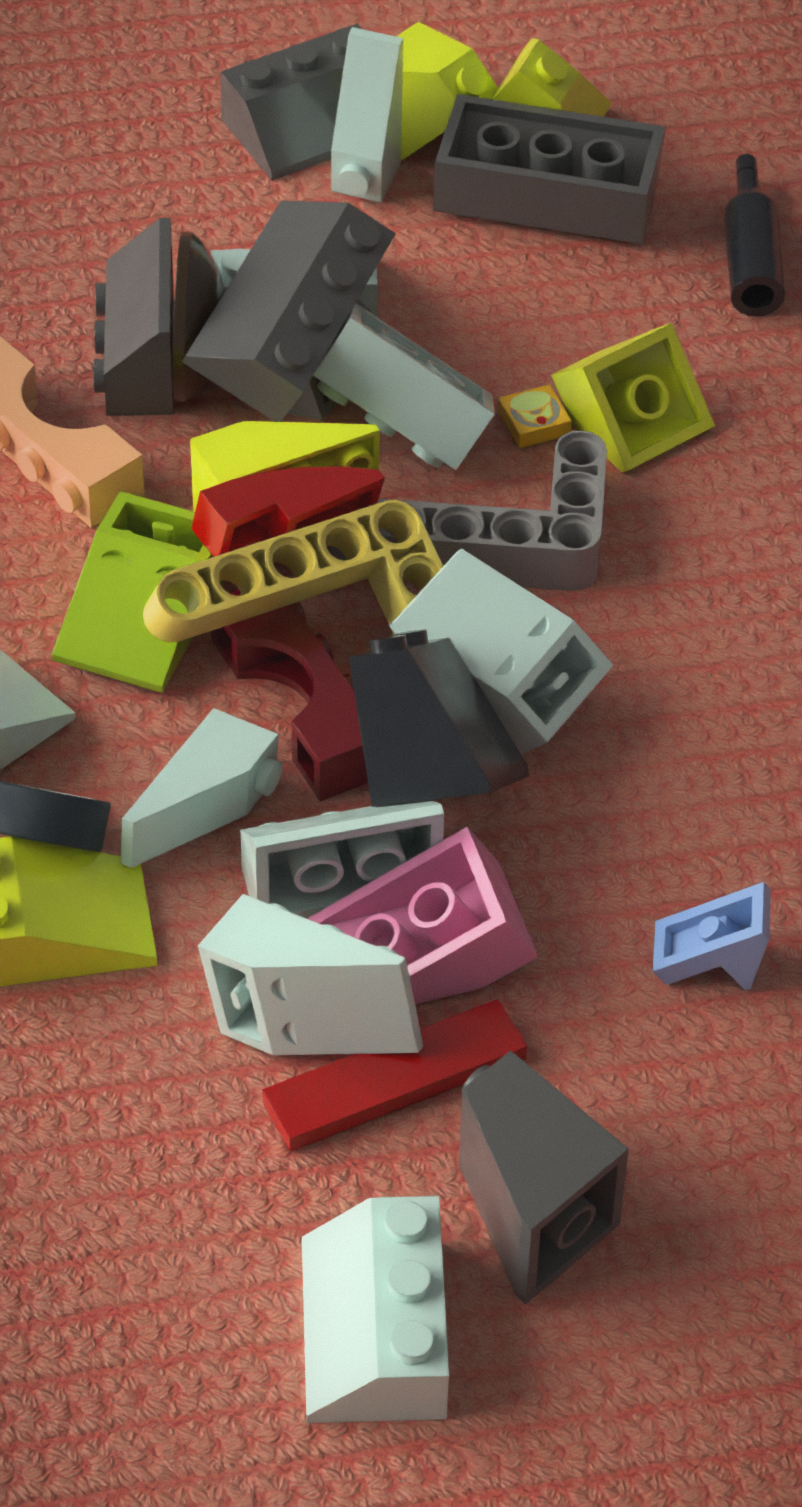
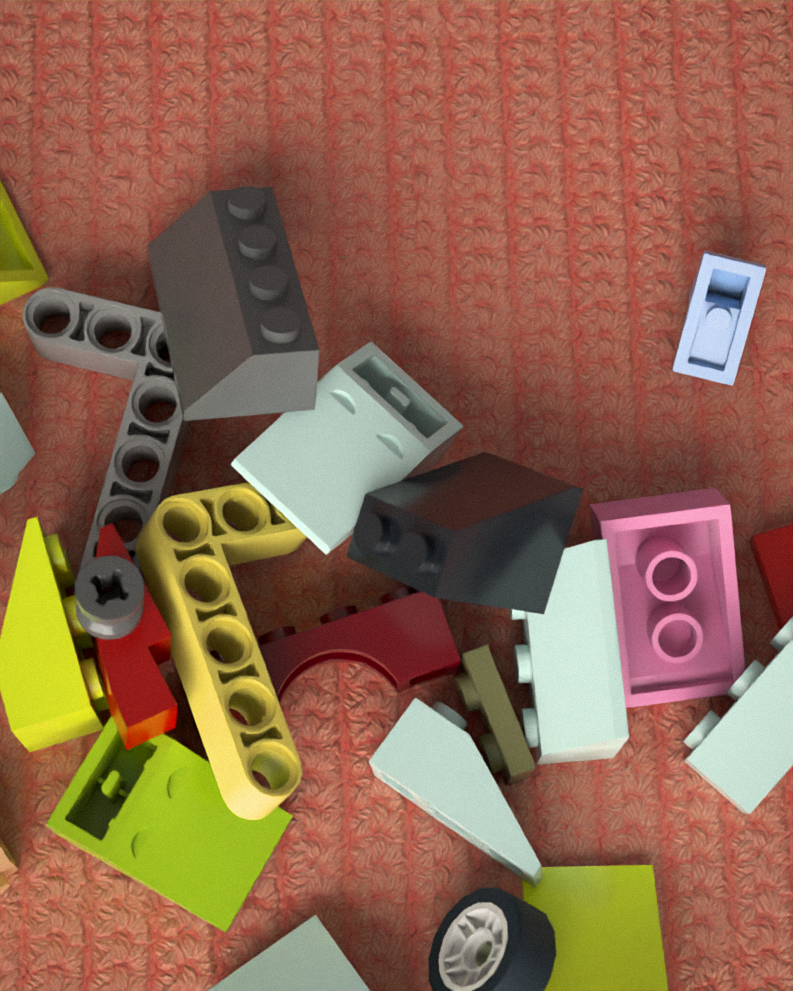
camera: 85 degrees left, 25 degrees up
(293, 799) = (484, 691): none -> olive plate
(309, 461) = (106, 613): none -> dark grey wheel
(614, 558) = (234, 309): none -> dark grey slope

